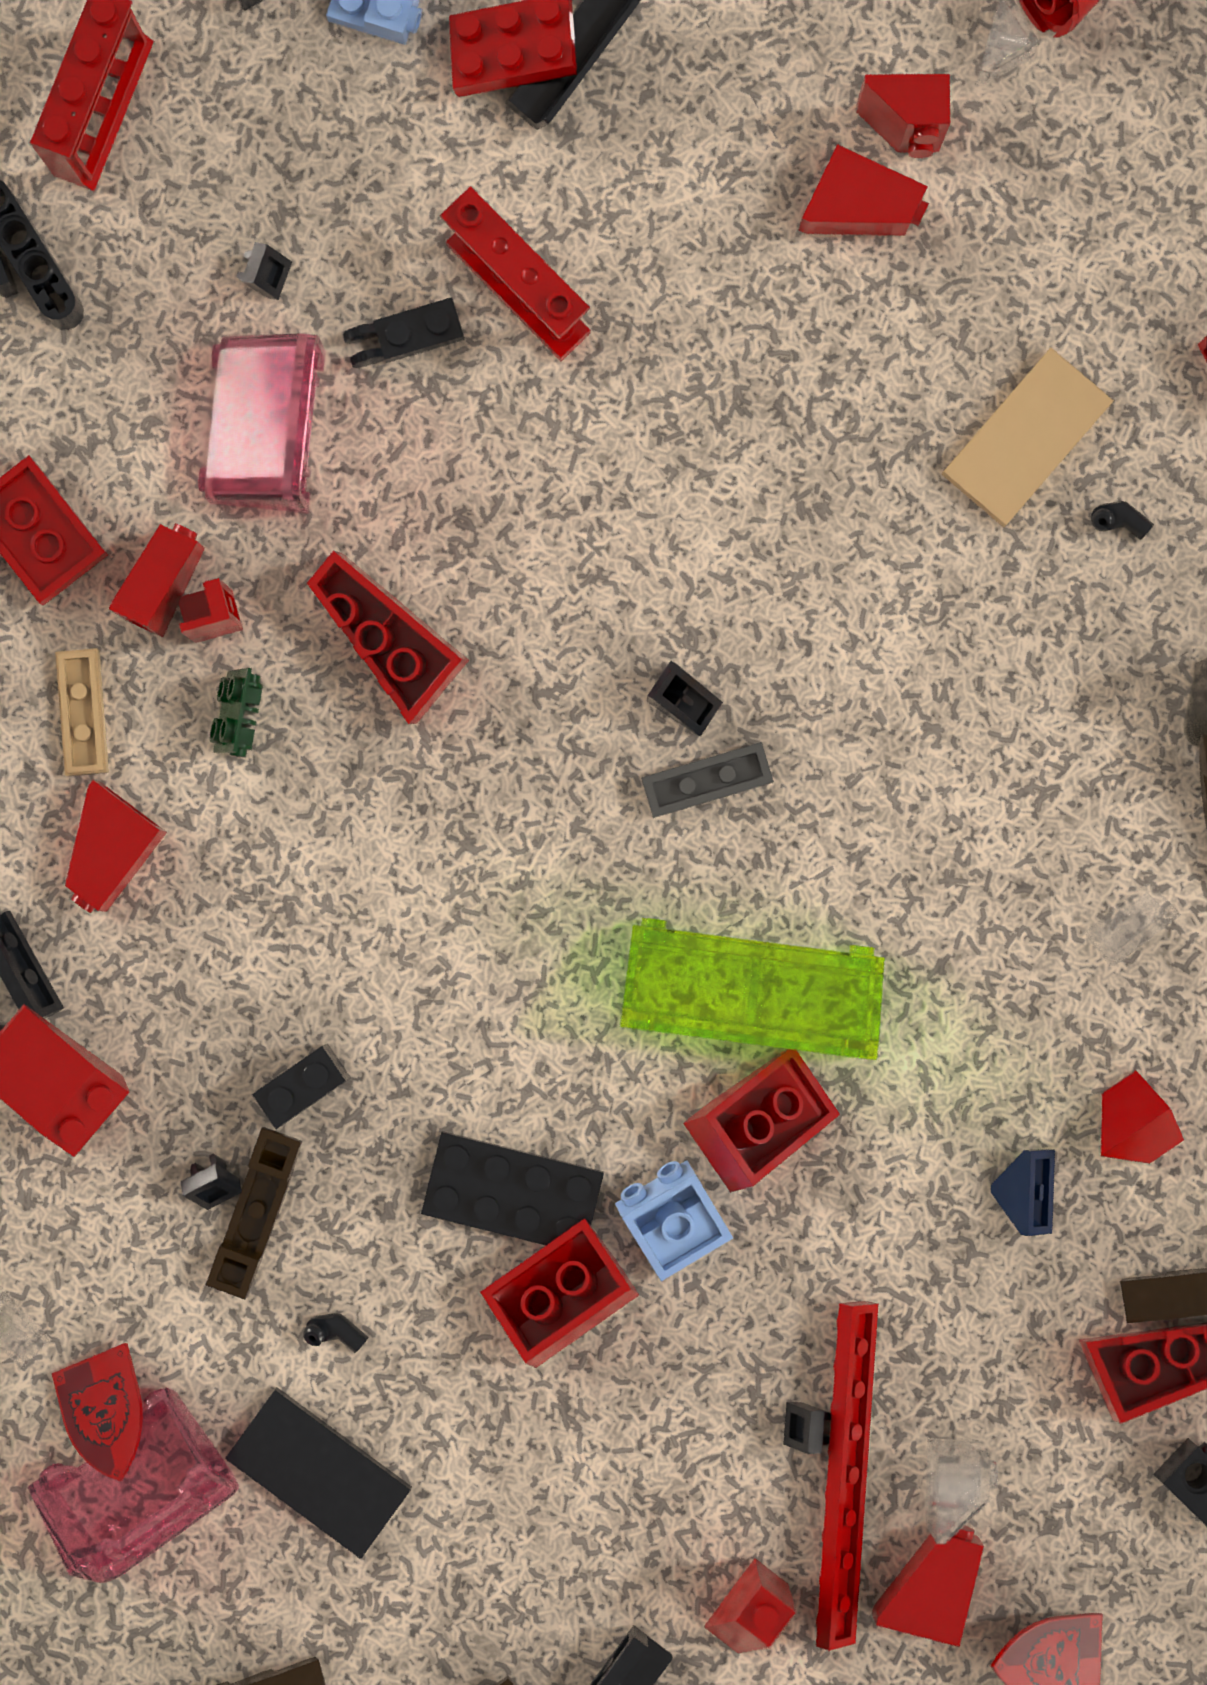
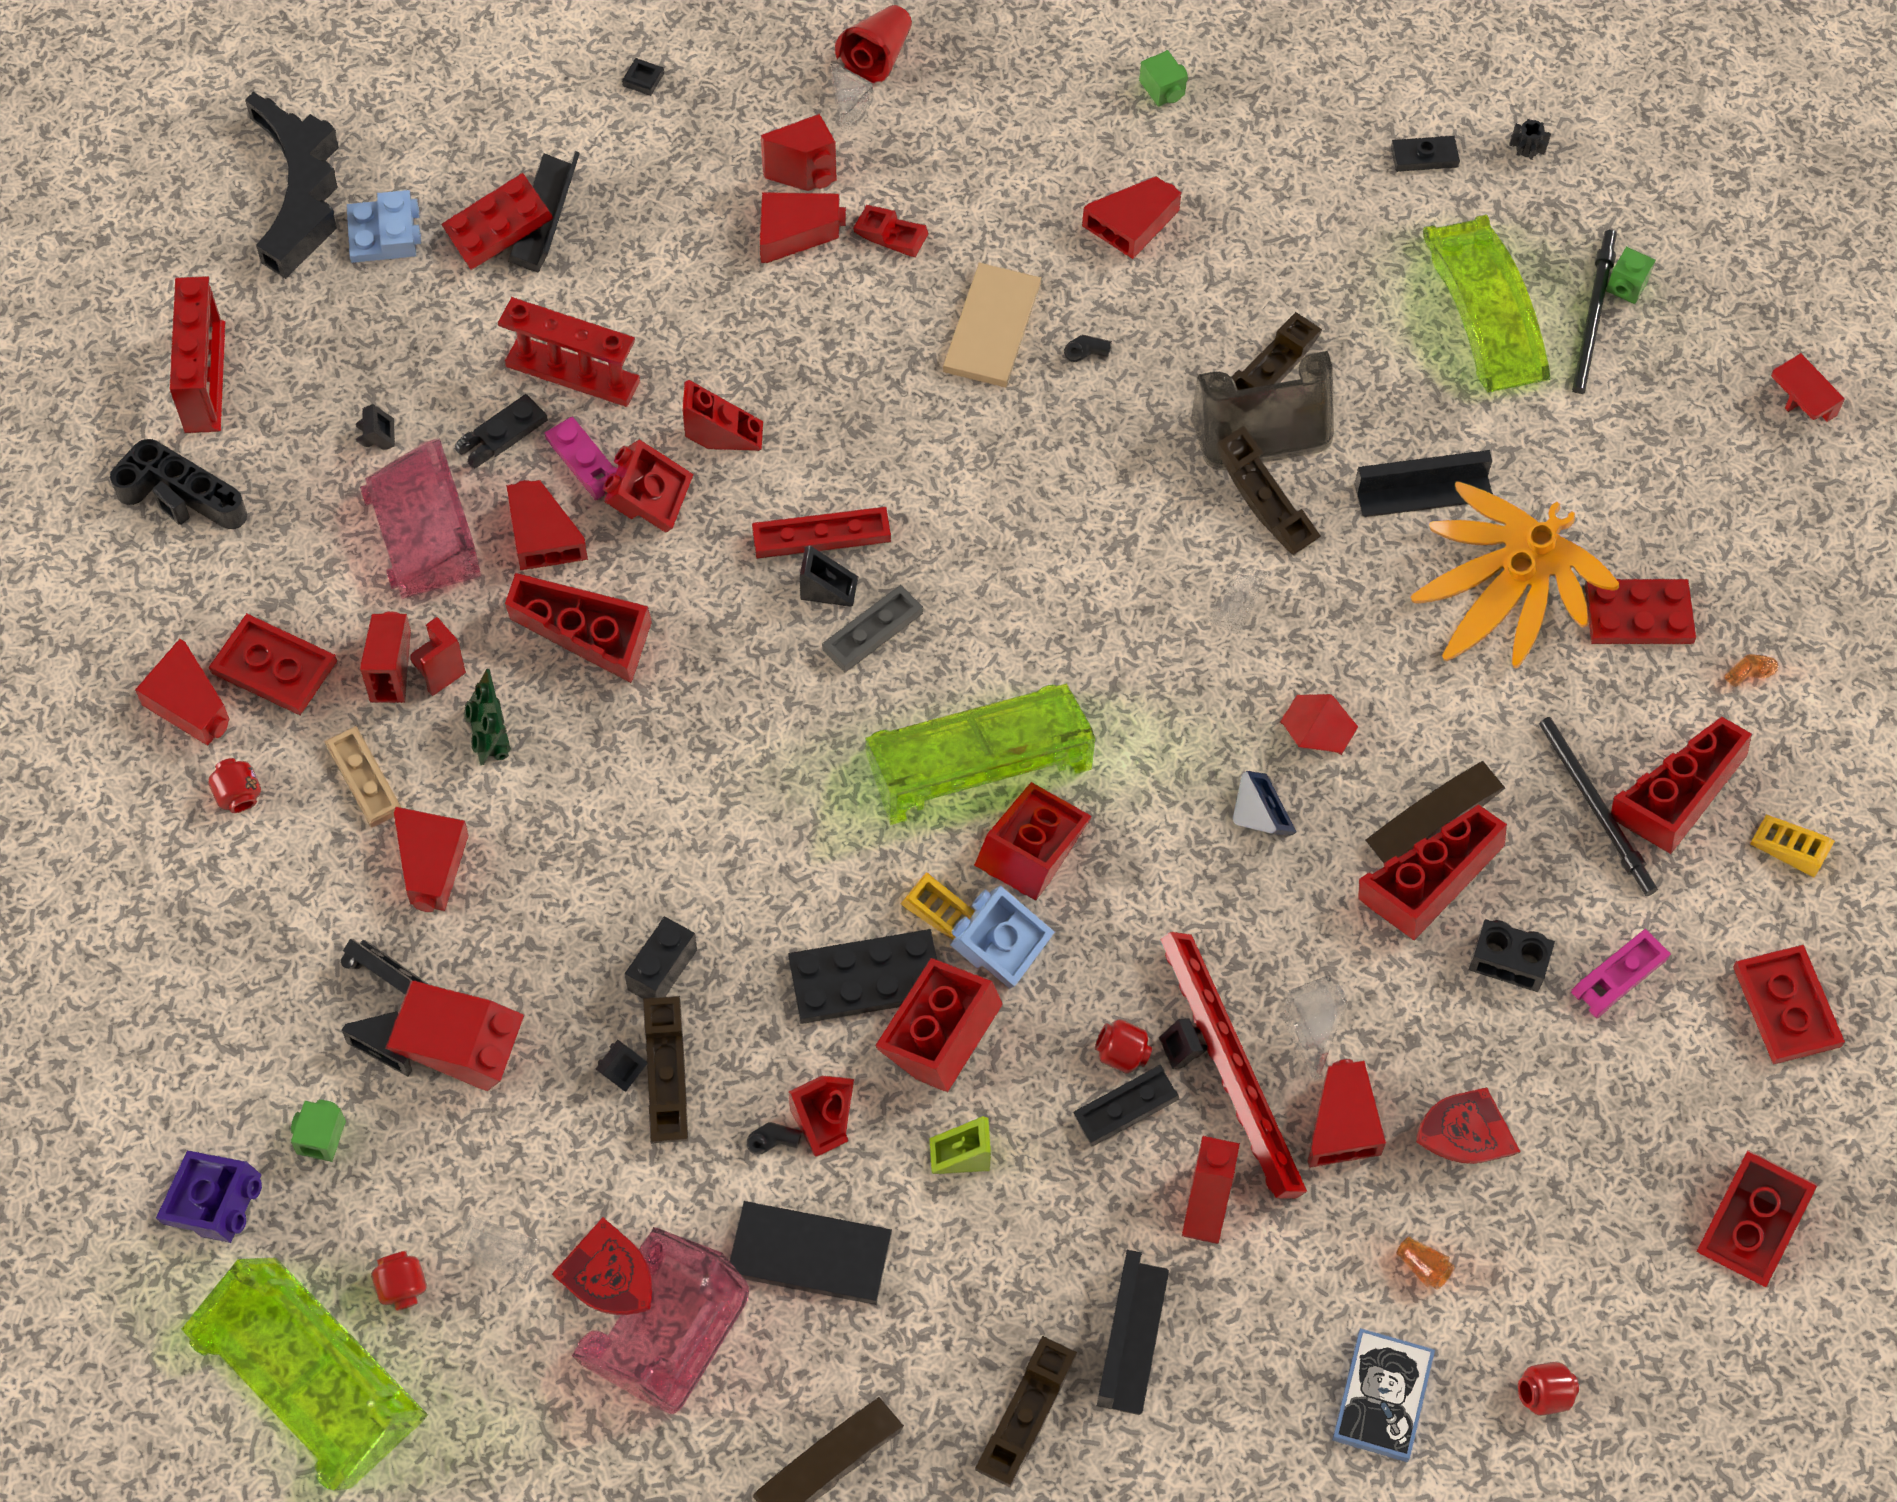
camera: 30 degrees left, 25 degrees down
(393, 485) = (542, 528): none -> red slope
(398, 1330) = (822, 1111): none -> red slope
(482, 410) = (580, 455): none -> dark pink plate
(520, 1438) = (962, 1148): none -> lime slope
(534, 488) = (647, 485): none -> red plate
(611, 1120) = (939, 891): none -> yellow slope
(652, 440) = (717, 422): none -> red slope
(705, 631) = (821, 532): none -> red plate
(714, 1467) = (1126, 1105): none -> black hinge
(742, 1402) = (1123, 1046): none -> red head
(967, 254) = (884, 228): none -> red slope

